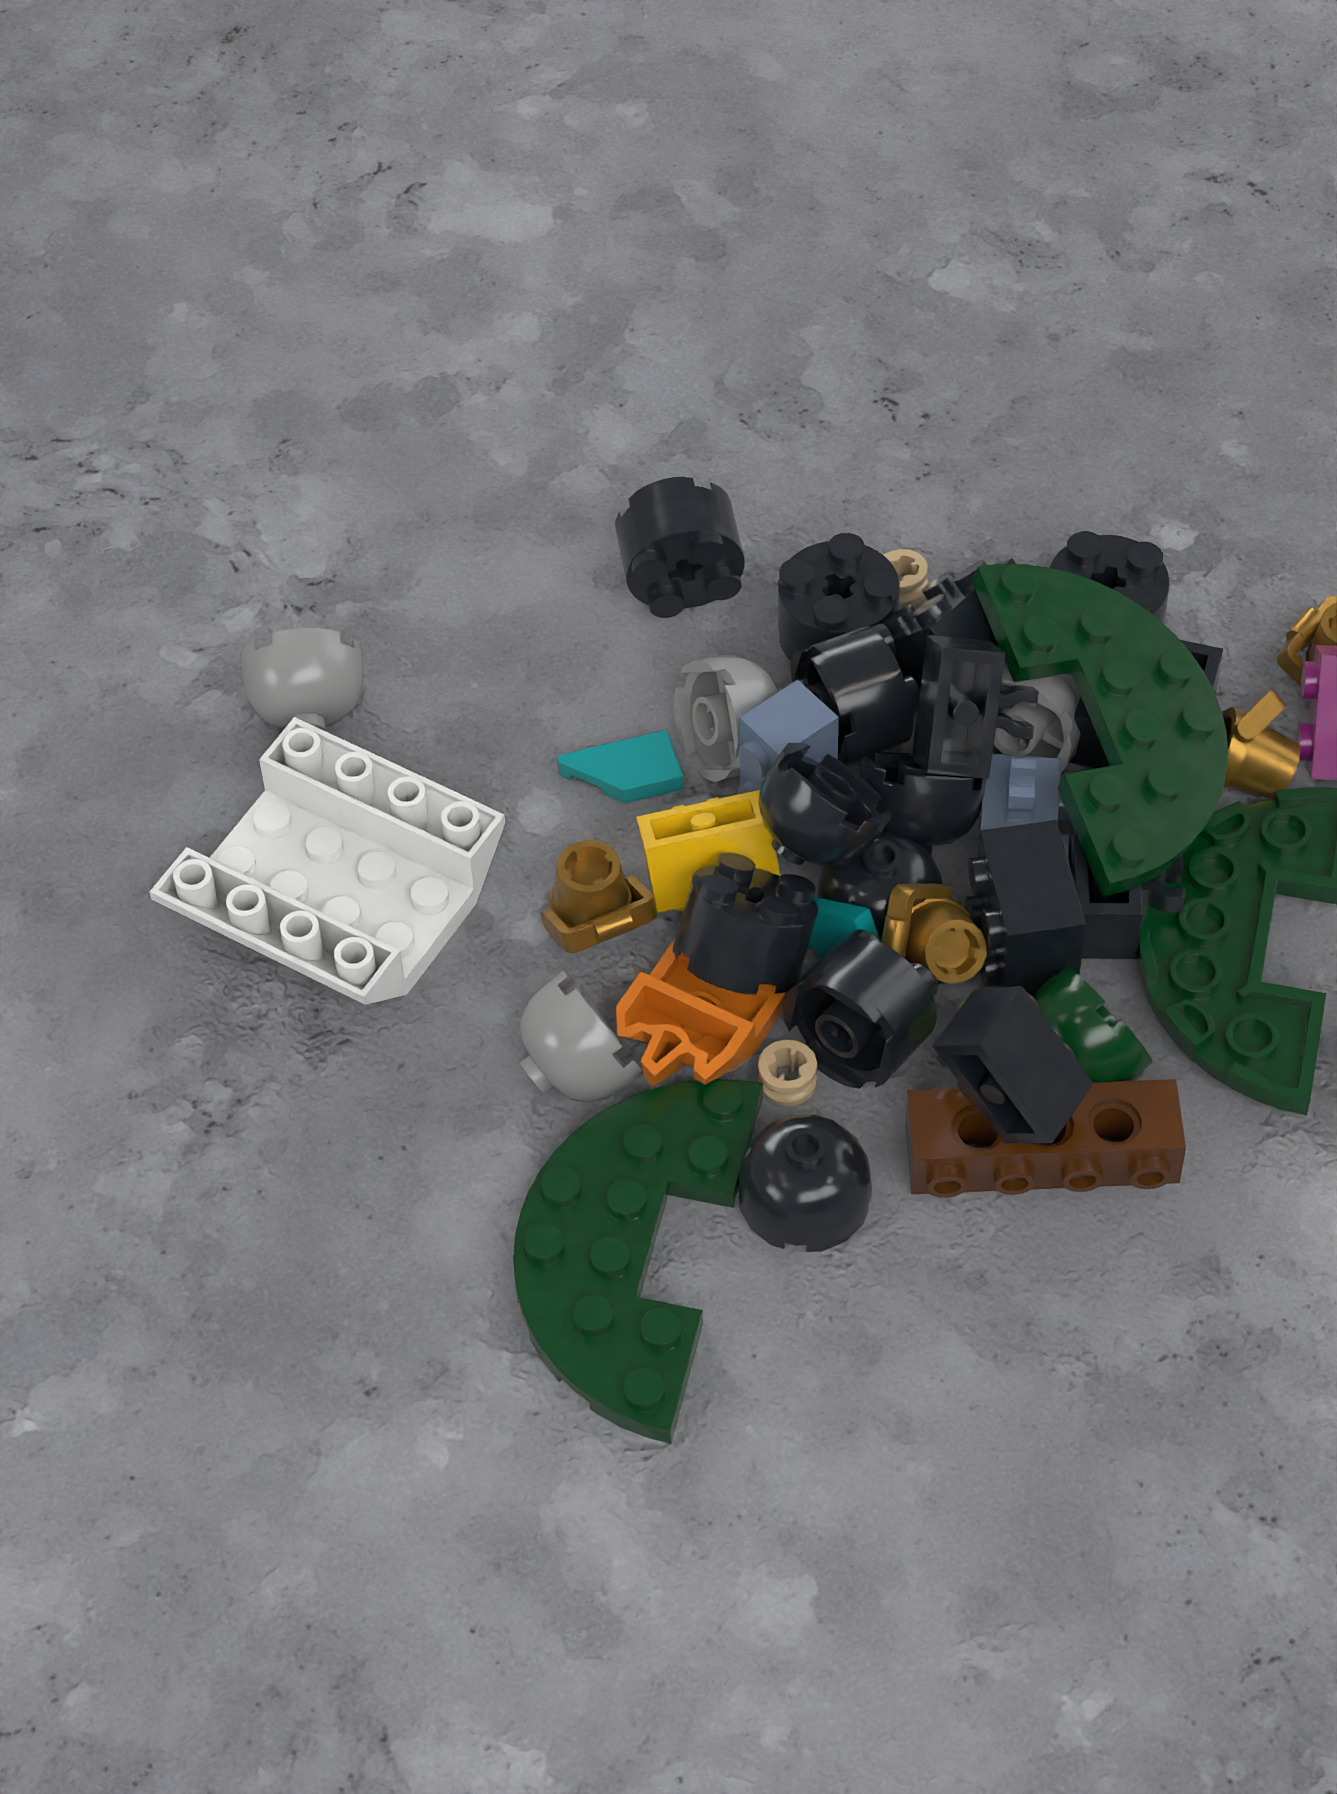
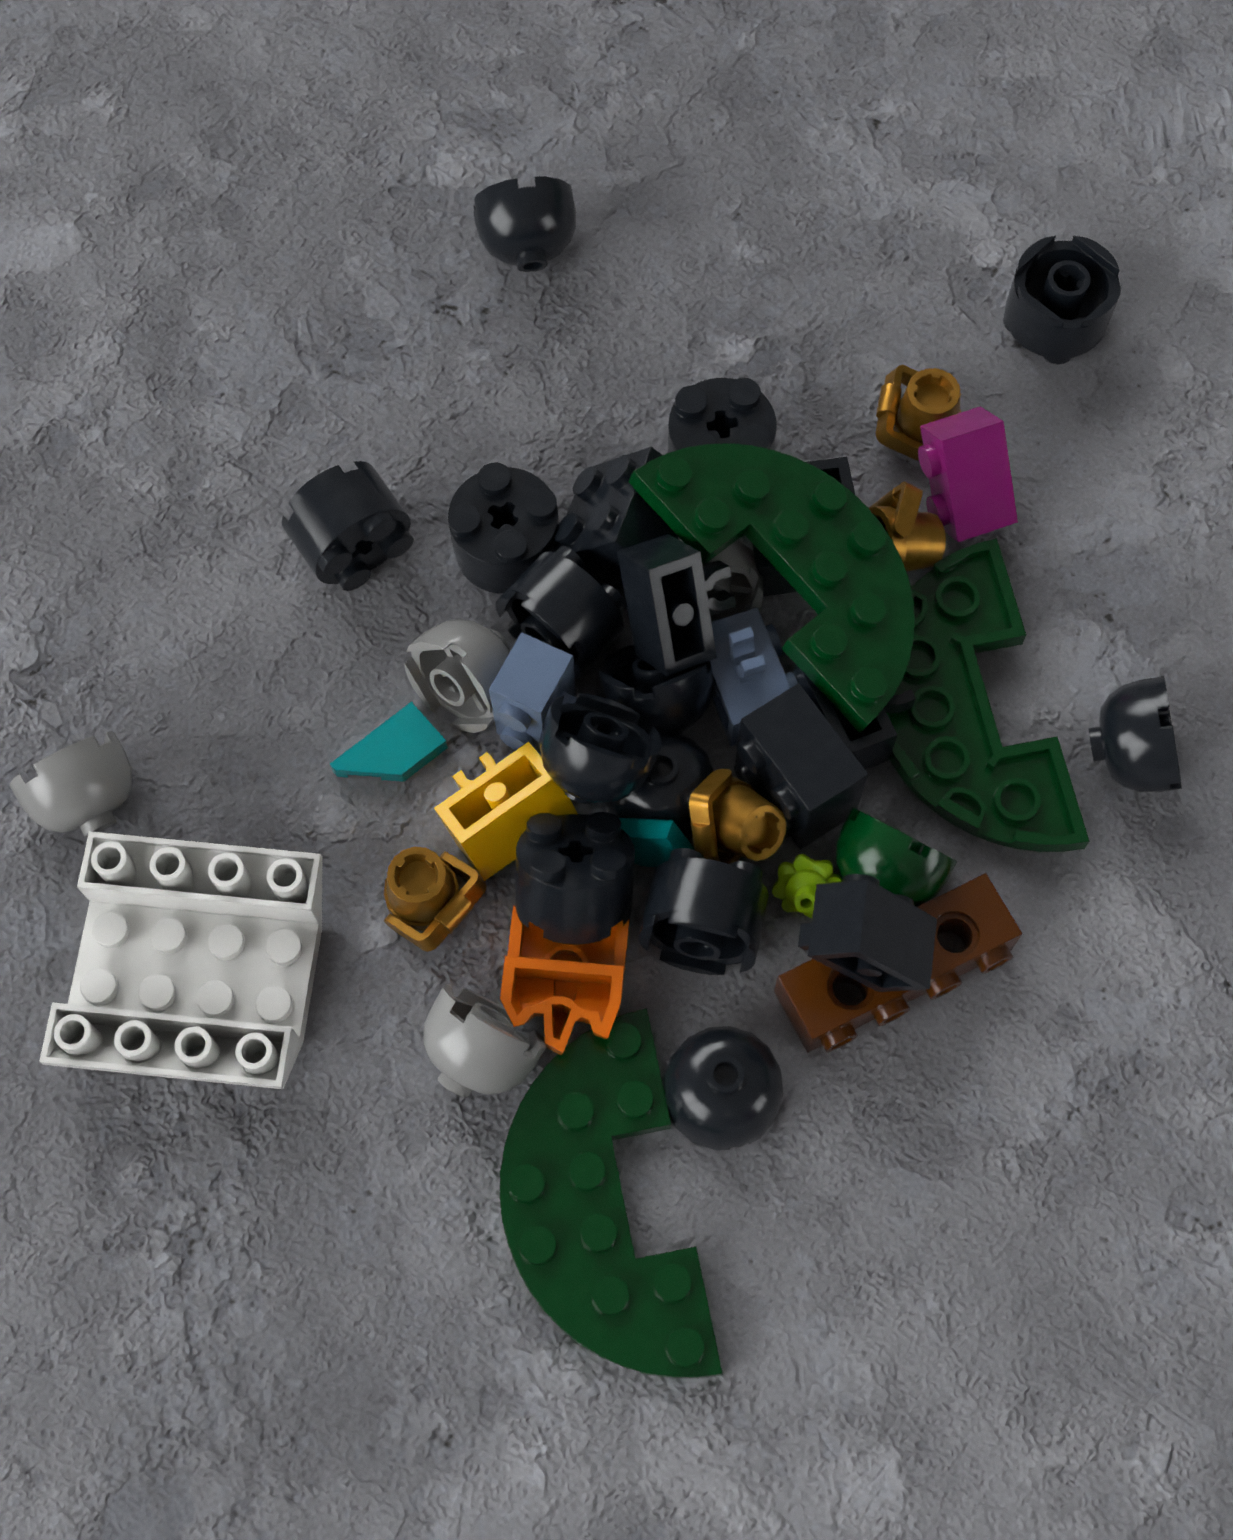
camera: 25 degrees left, 15 degrees up
(791, 1054) = (642, 986): tan bush -> none
(915, 565) = (544, 459): tan bush -> none
(1003, 340) = (527, 222): none -> black cylinder

